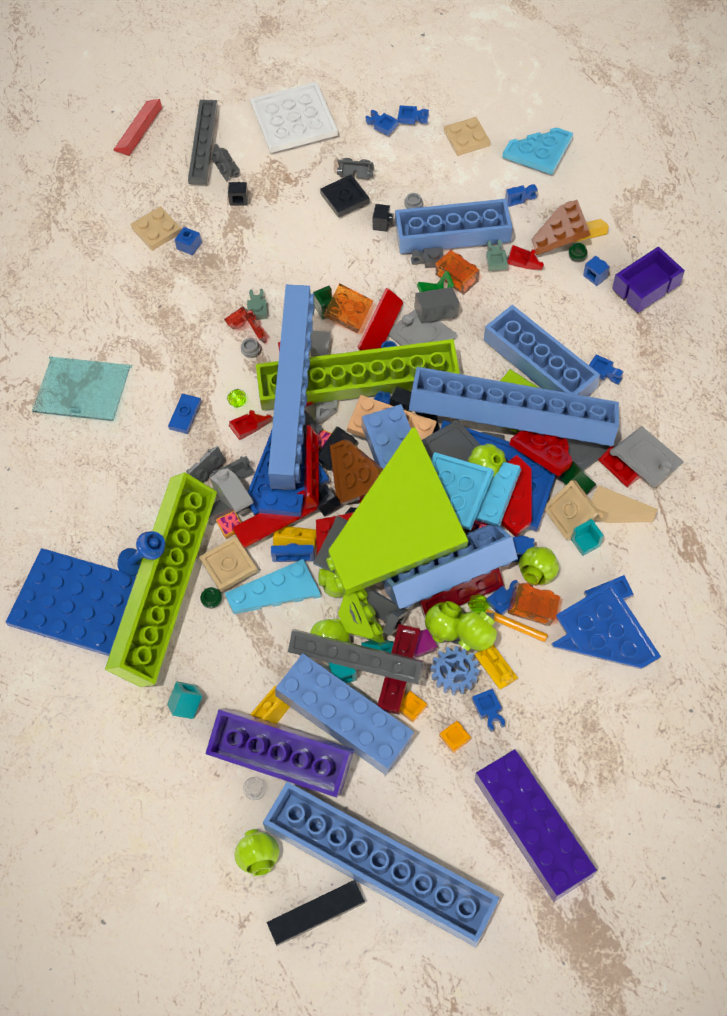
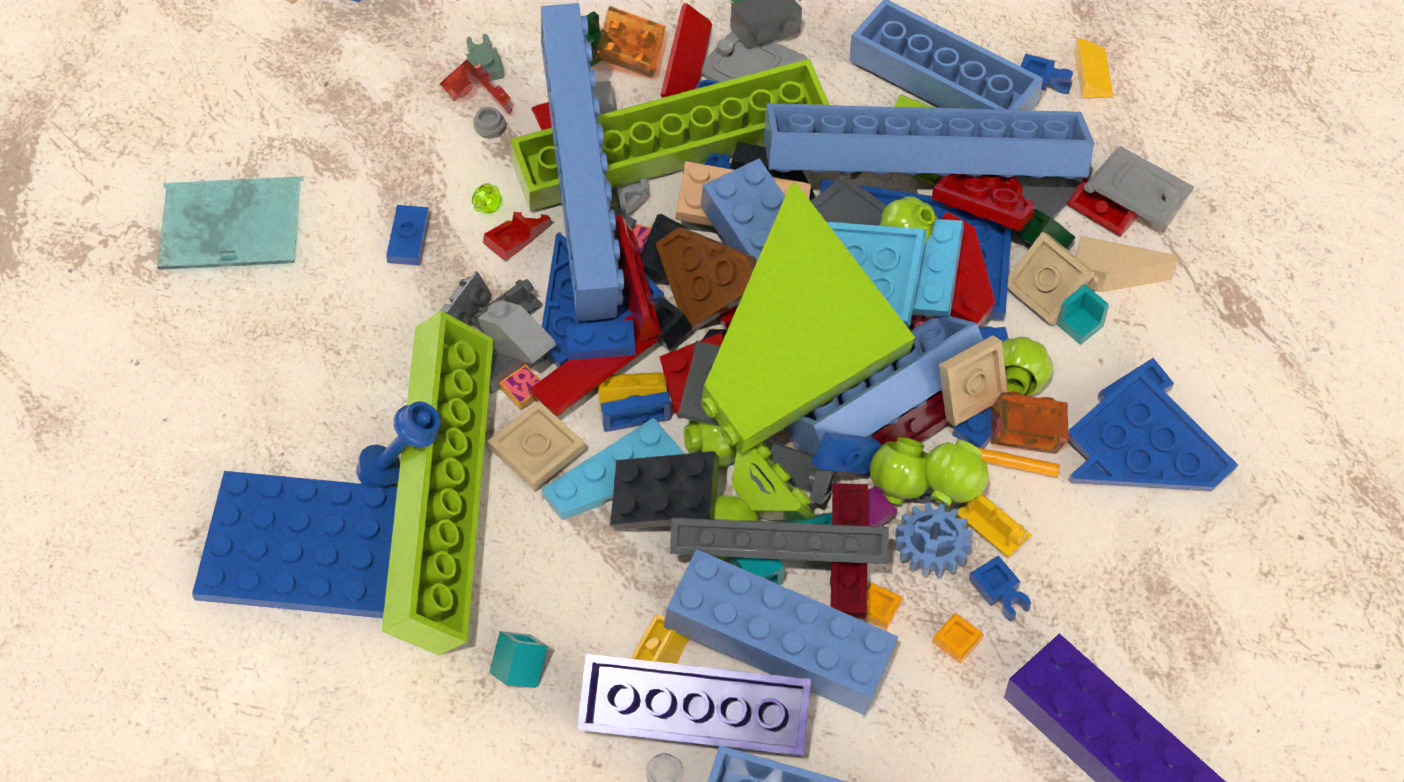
camera: 15 degrees left, 5 degrees down
(211, 597) = (521, 500): dark green plate -> none
(295, 608) = (664, 487): none -> black plate
(410, 606) = (845, 453): none -> blue plate
(478, 603) = (941, 434): clear neon green plate -> none
(502, 572) = (973, 380): none -> tan plate
(638, 371) = (1092, 70): none -> yellow slope

